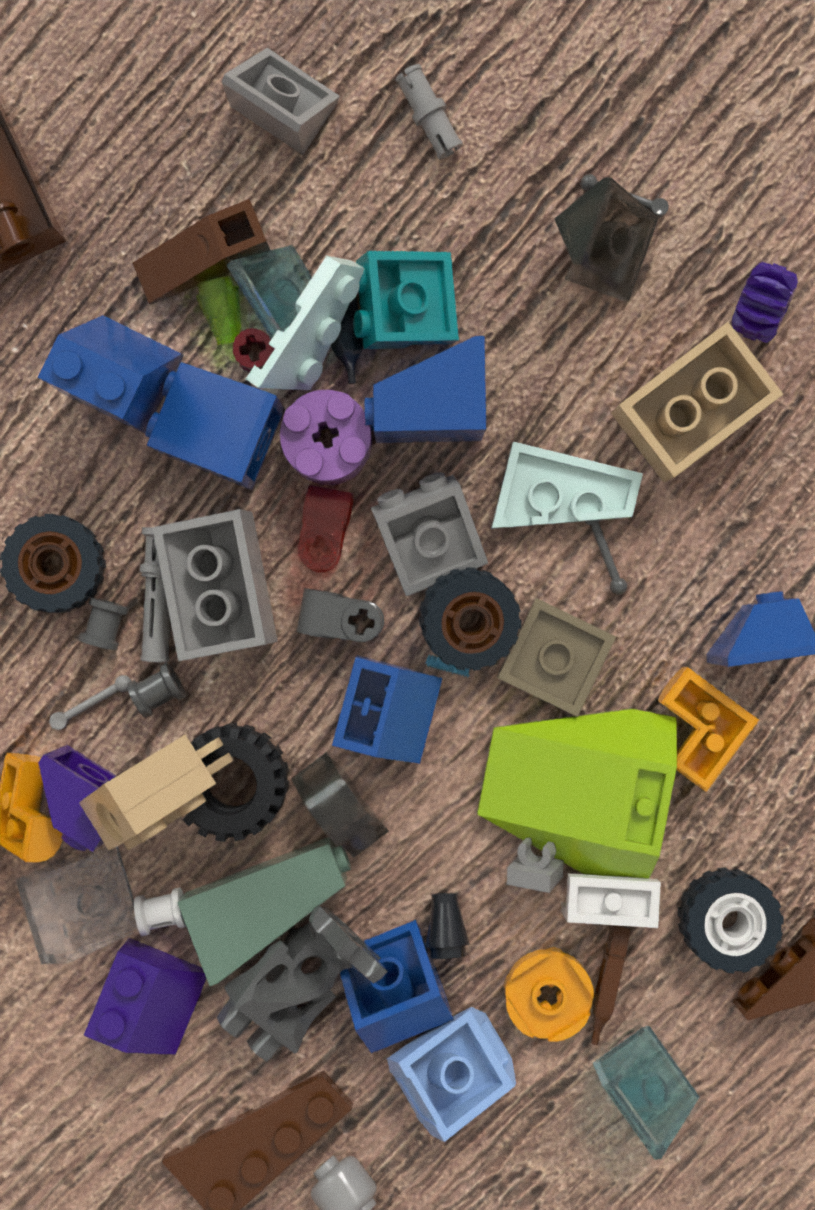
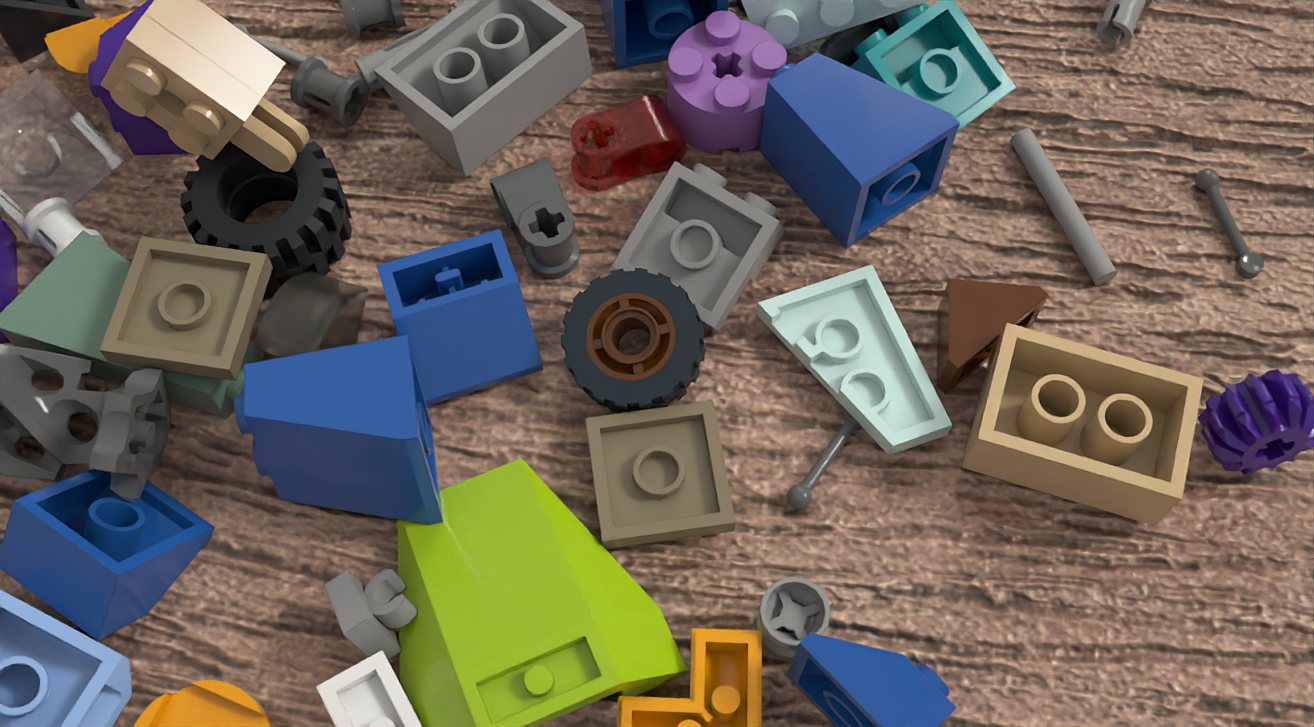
camera: 50 degrees right, 25 degrees down
(287, 871) = (187, 308): none -> dark tan plate
(426, 821) = (345, 430): none -> blue slope
(442, 666) = (575, 387): medium azure leg -> none
(446, 927) = (223, 562): black cone -> none
(545, 288) = (1063, 207): none -> light grey bar
(593, 410) = (973, 320): none -> reddish brown slope
(606, 238) = (1170, 220): clear smoke slope -> none
(697, 645) = (797, 607): none -> light grey wheel

